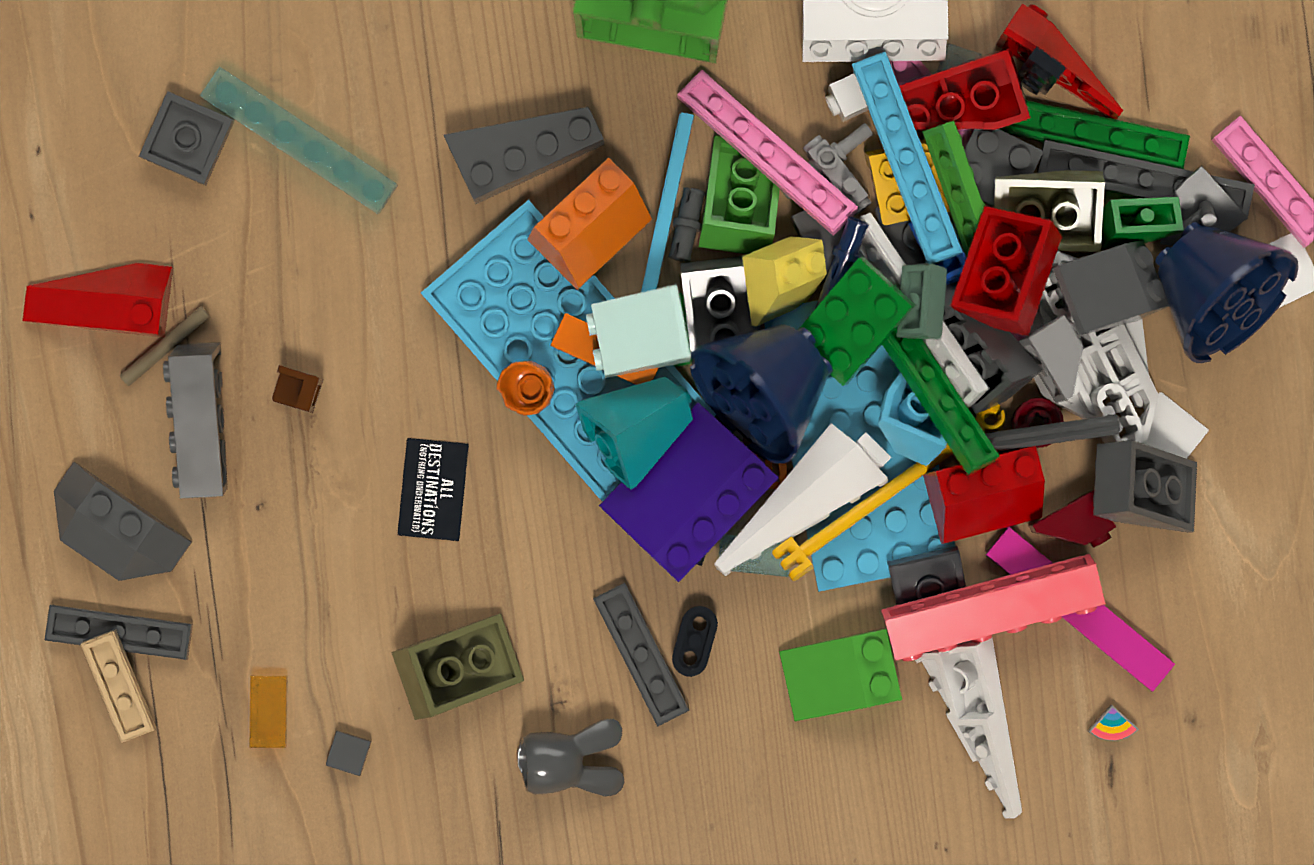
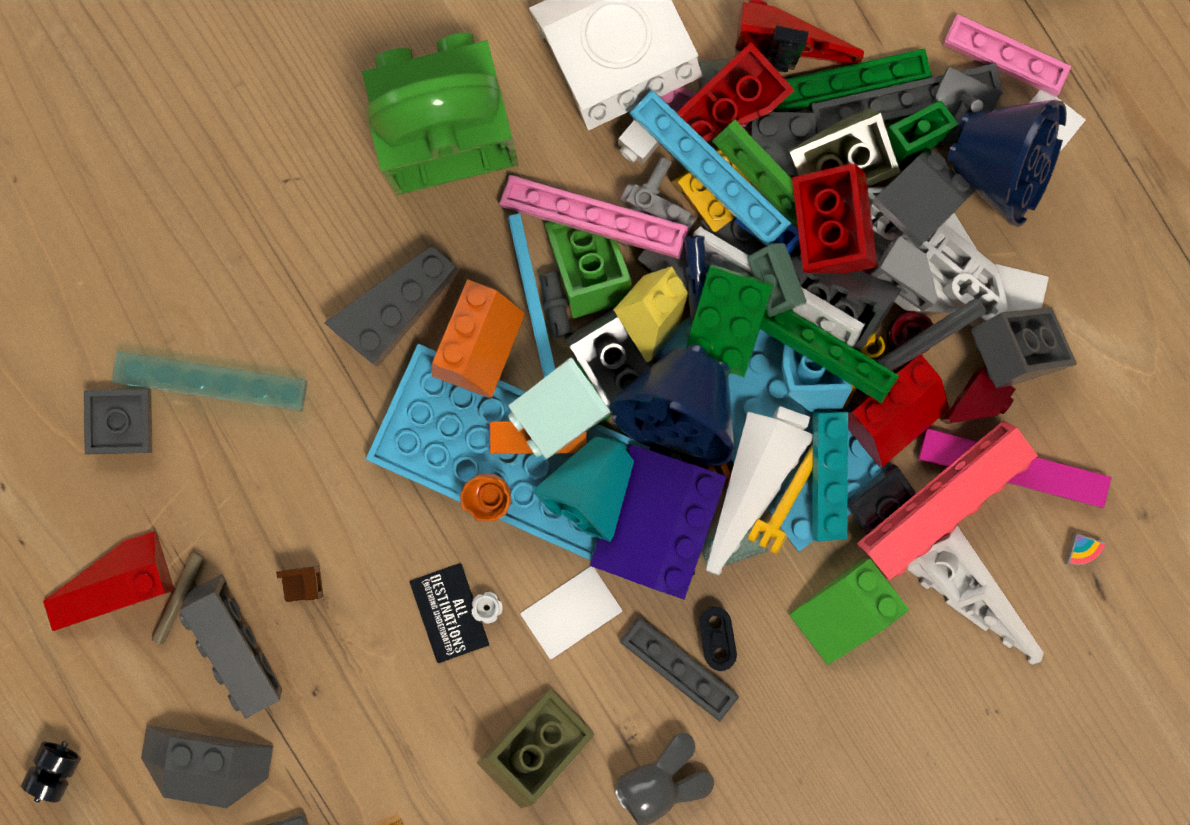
camera: 30 degrees left, 0 degrees up
(464, 501) = (478, 607): none -> white plate
(557, 546) = (571, 612): none -> white sticker
(885, 527) = (830, 476): none -> teal plate

